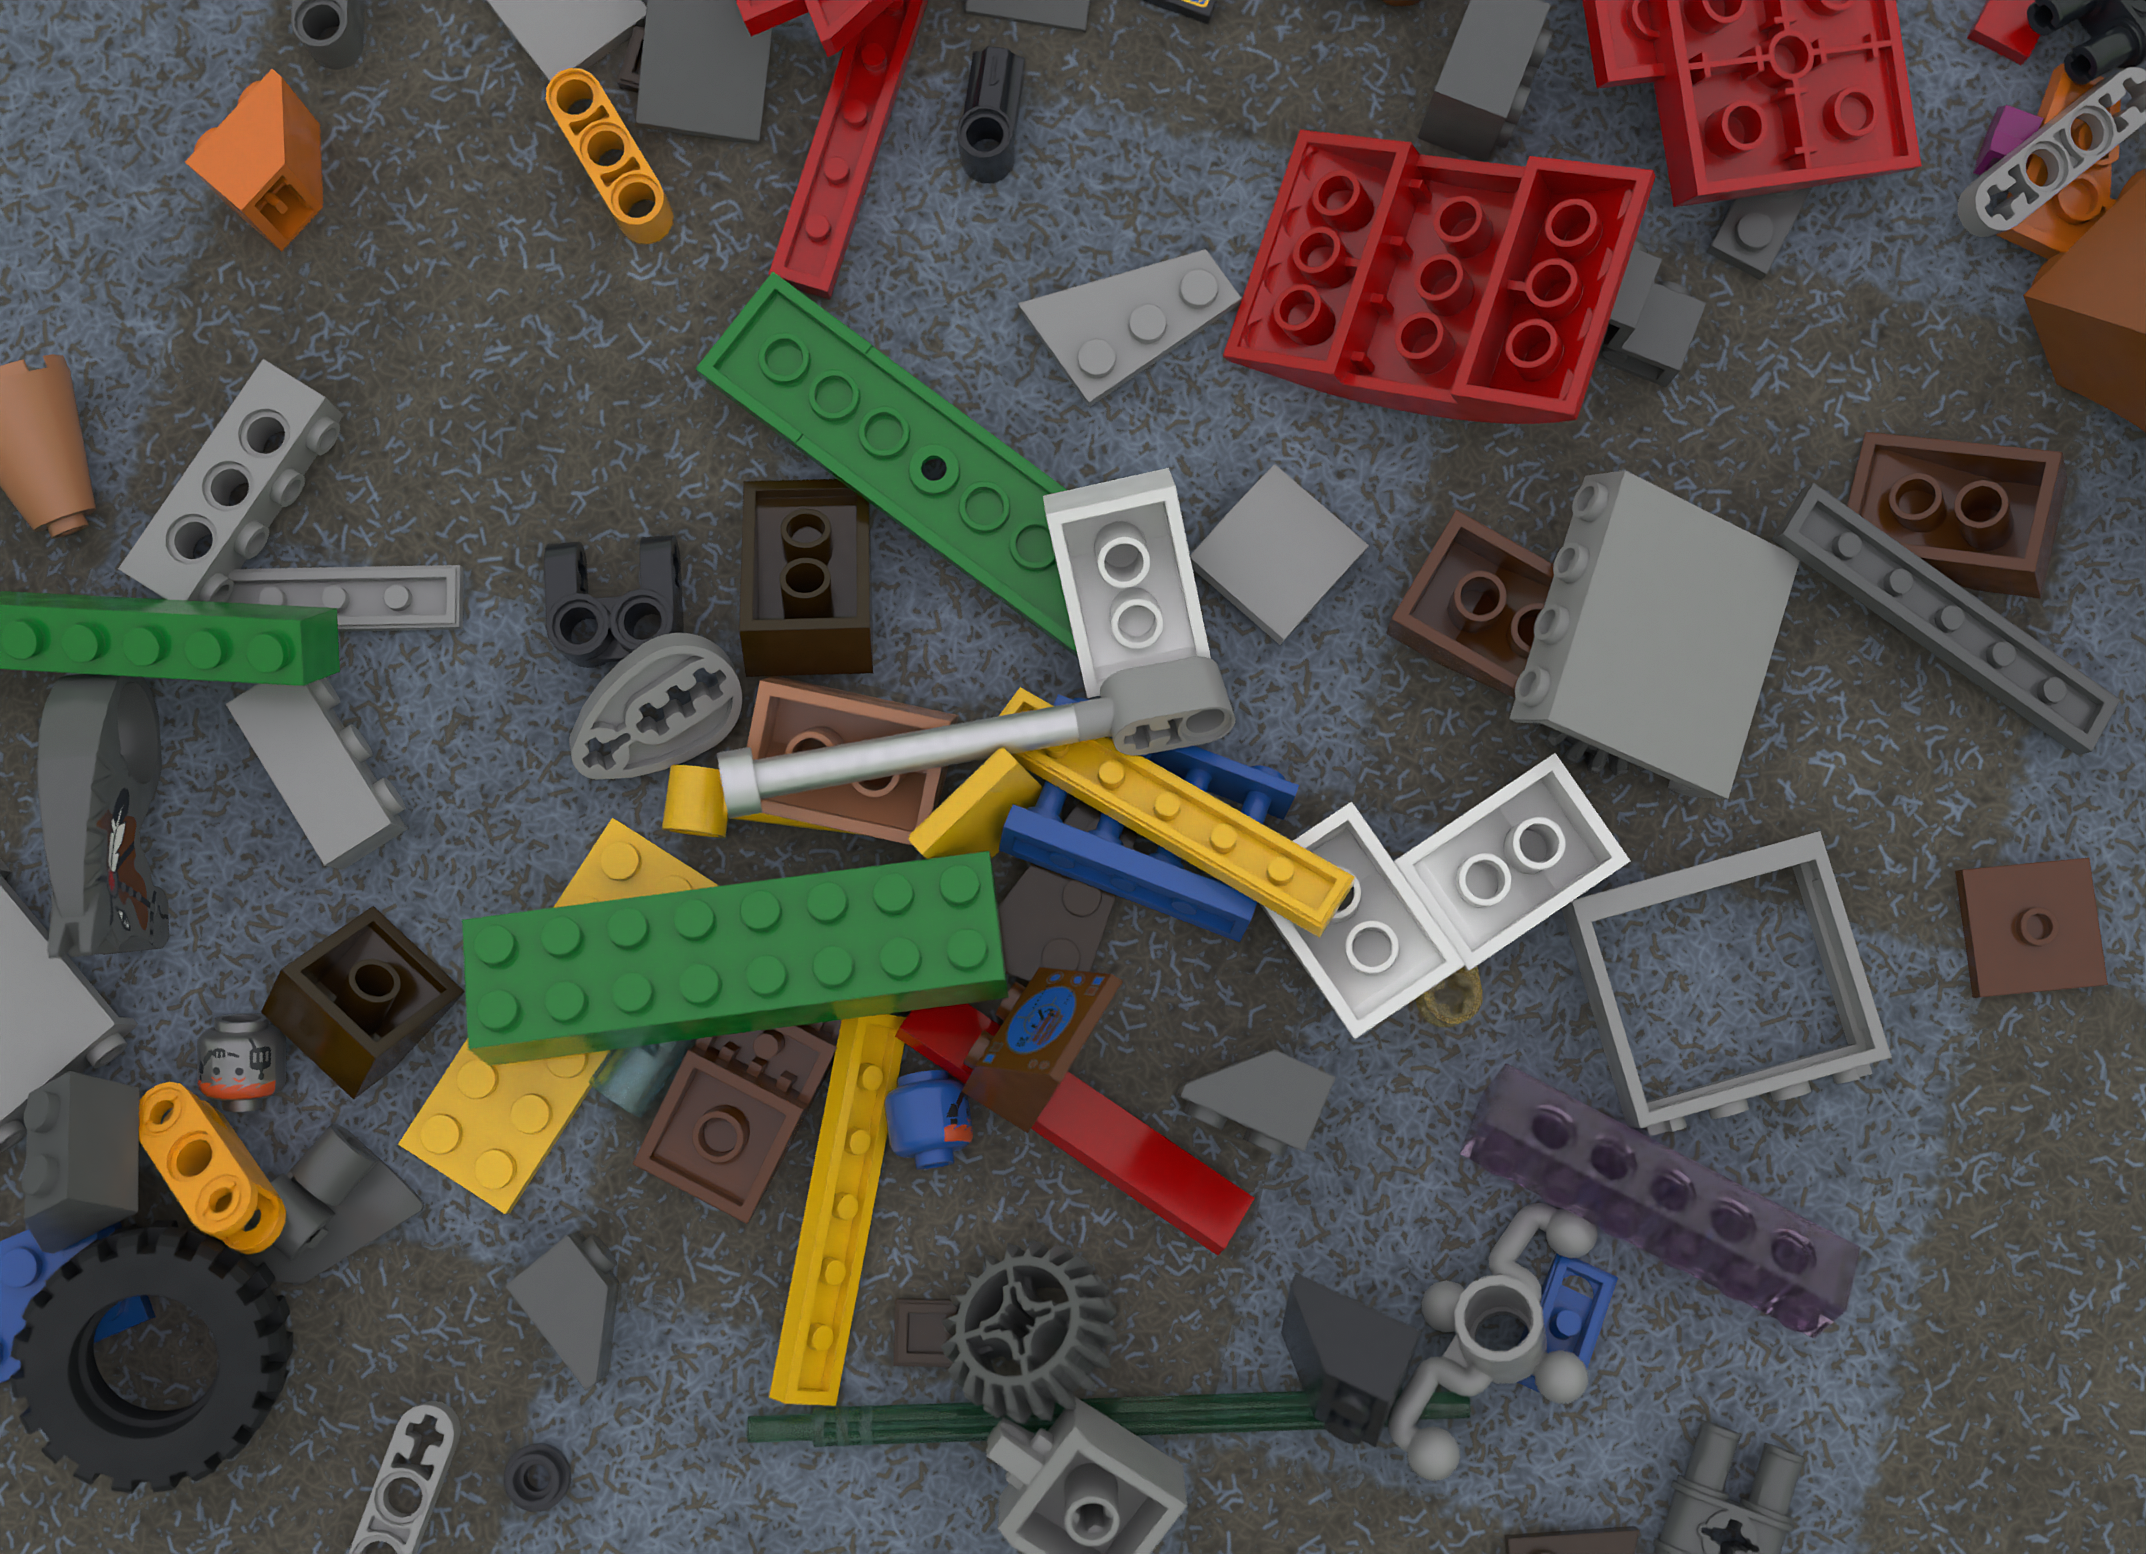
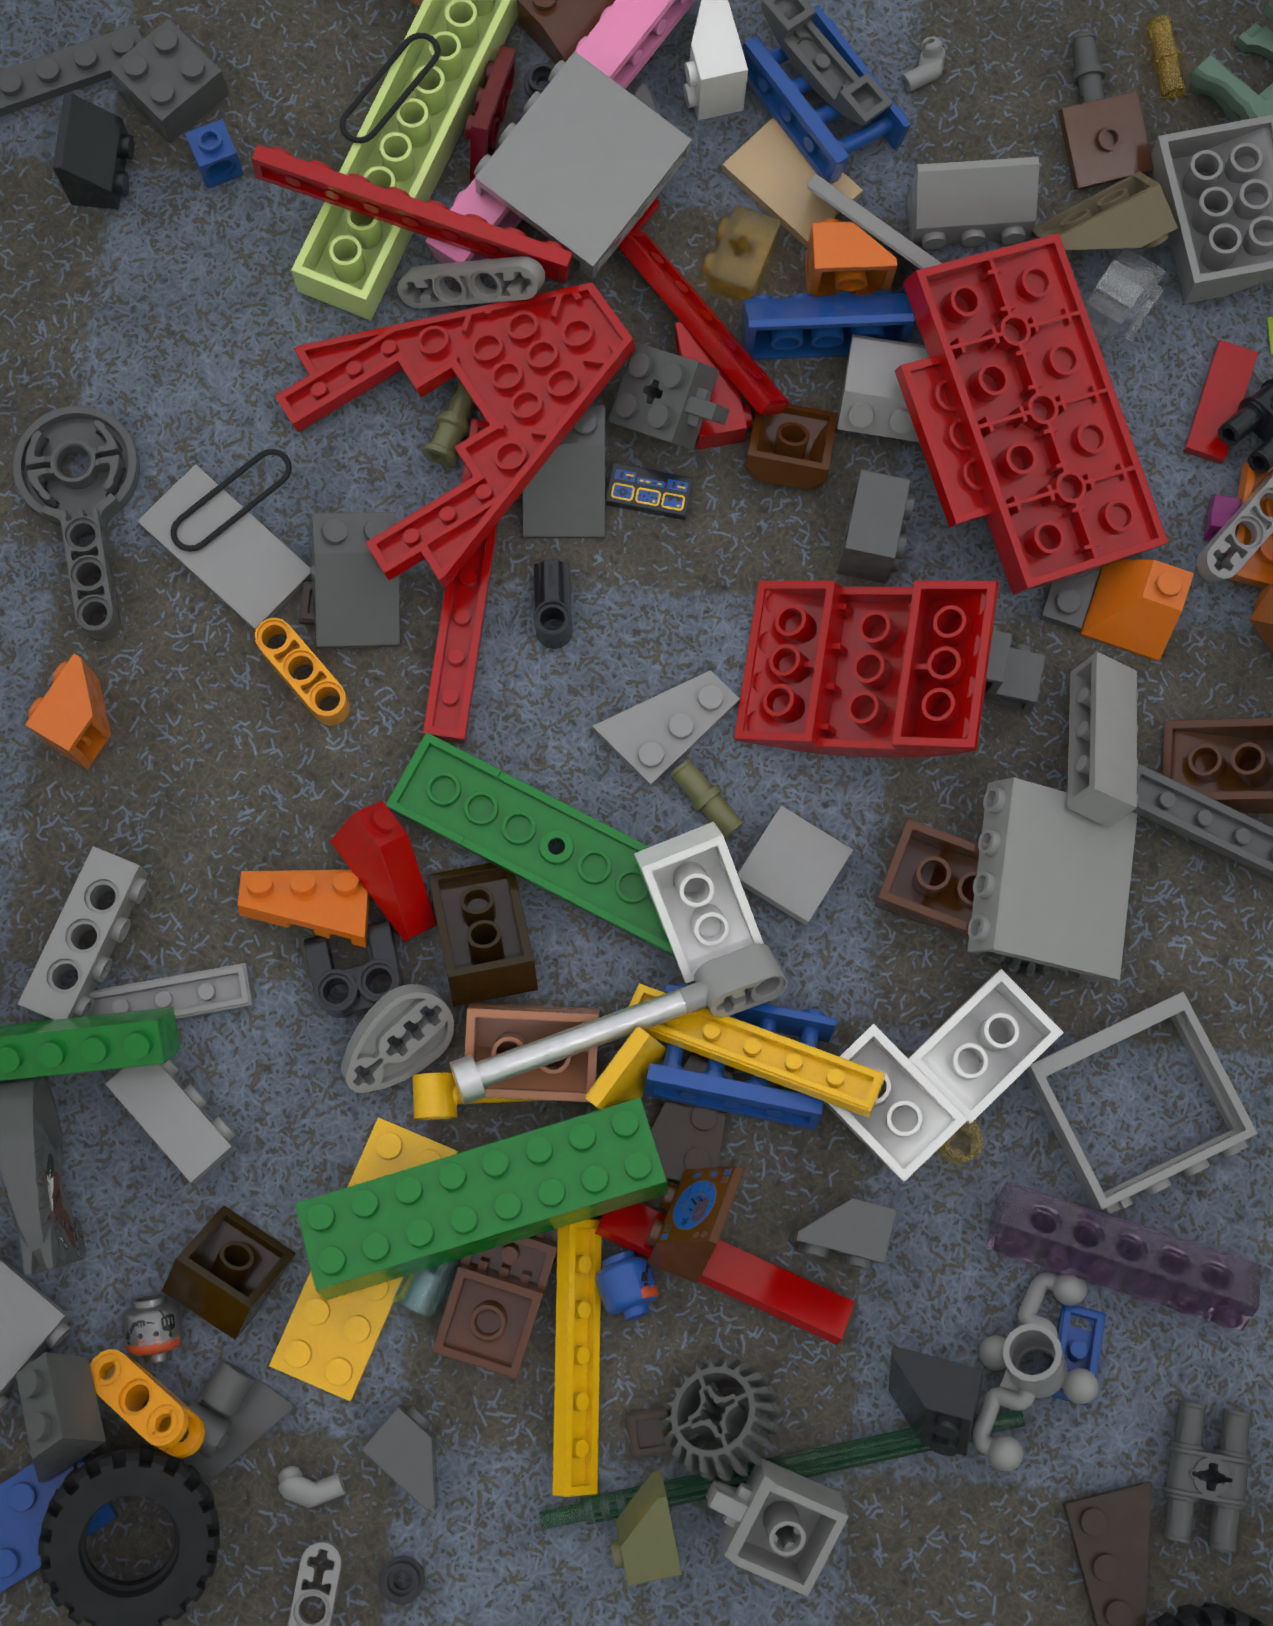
camera: 15 degrees left, 5 degrees down
(424, 1332) = (306, 1492): none -> light grey arm
(576, 490) = (311, 899): none -> orange wing
(683, 460) = (386, 866): none -> red slope
(894, 1479) = (646, 1536): none -> olive slope
(1166, 435) = (706, 797): none -> olive pin
(1768, 441) = (1102, 740): none -> light grey brick
(1856, 253) = (1137, 605): none -> orange slope

